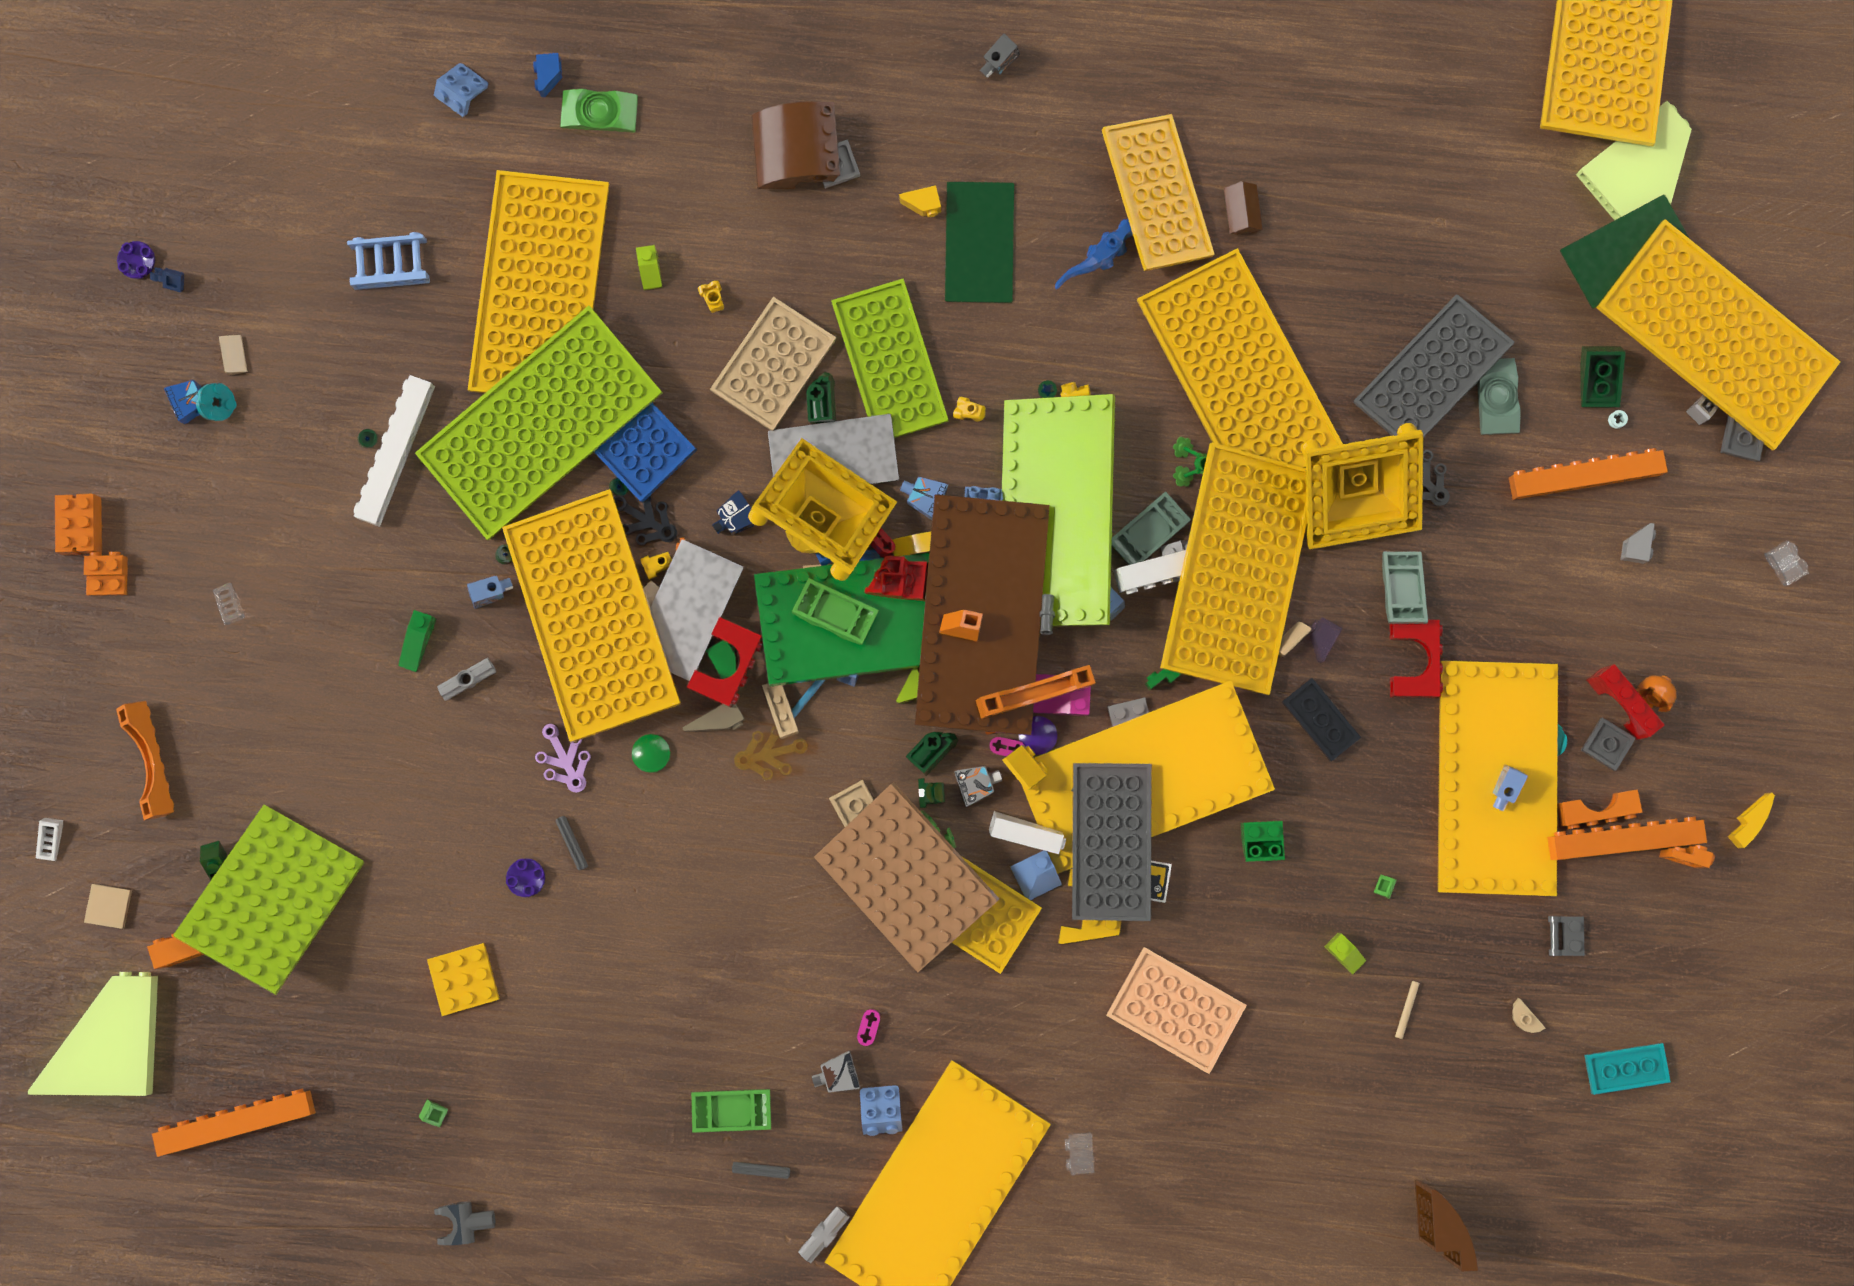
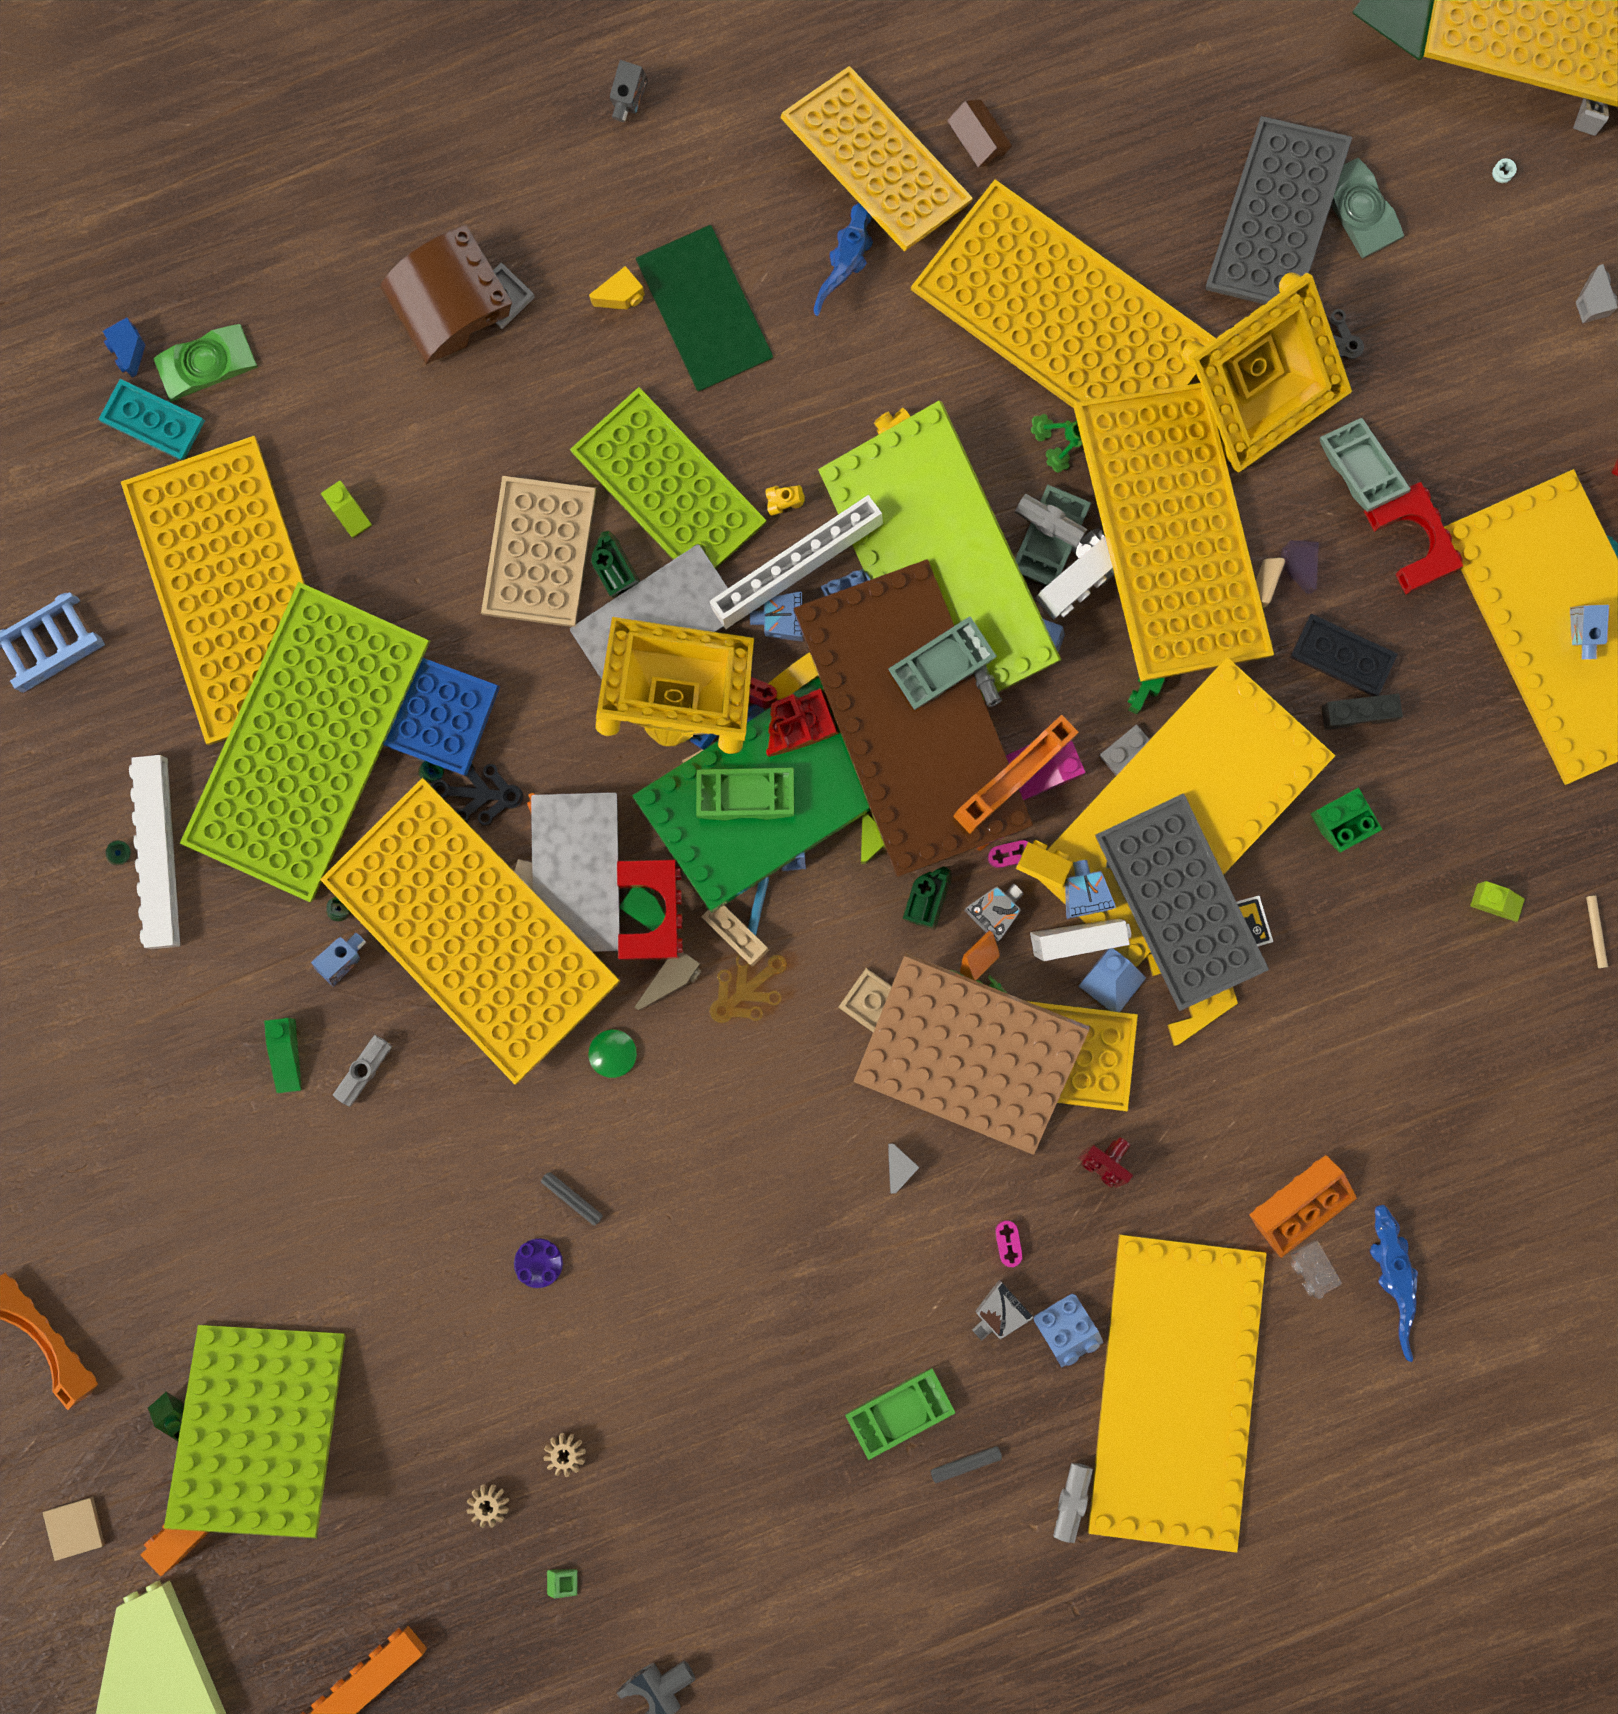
camera: 20 degrees left, 0 degrees up
(221, 605) = (65, 1122): clear slope -> none
(400, 1033) = (496, 1503): none -> tan gear
(459, 87) = (32, 410): medium blue bracket -> none
(463, 979) = (523, 1413): yellow plate -> none
(473, 1017) = (573, 1458): none -> tan gear
(540, 135) = (151, 420): none -> teal plate
(564, 761) = (519, 1110): lavender plant -> none
(652, 566) = (511, 841): yellow plate -> none
(712, 295) = (433, 507): yellow plate -> none
(734, 515) = (578, 740): dark blue torso -> none
(817, 934) = (900, 1168): none -> light grey slope
(930, 793) = (950, 946): dark green piece -> none
(947, 811) = (980, 957): none -> orange slope
(954, 462) = (797, 561): none -> white brick
(962, 624) = (896, 738): orange slope -> none
(967, 1003) = (1107, 1162): none -> dark red plate
(1021, 586) = (942, 663): none -> sand green slope
(1042, 736) = (1045, 821): dark purple dish -> none
(1047, 389) = (859, 434): dark green tile -> none
(1047, 801) = (1086, 892): none -> medium blue torso
(1094, 1103) = (1303, 1205): none -> orange slope
(1138, 1187) = (1398, 1275): none -> blue animal
(1154, 519) = (1050, 520): none -> light grey piece
(1176, 1010) = (1343, 1056): light nougat plate -> none
(1313, 766) = (1361, 710): none -> pearl dark grey arch
(1385, 886) = (1505, 806): bright green slope -> none
(1587, 475) = (1501, 246): orange brick -> none
(1601, 375) = (1464, 130): dark green slope -> none

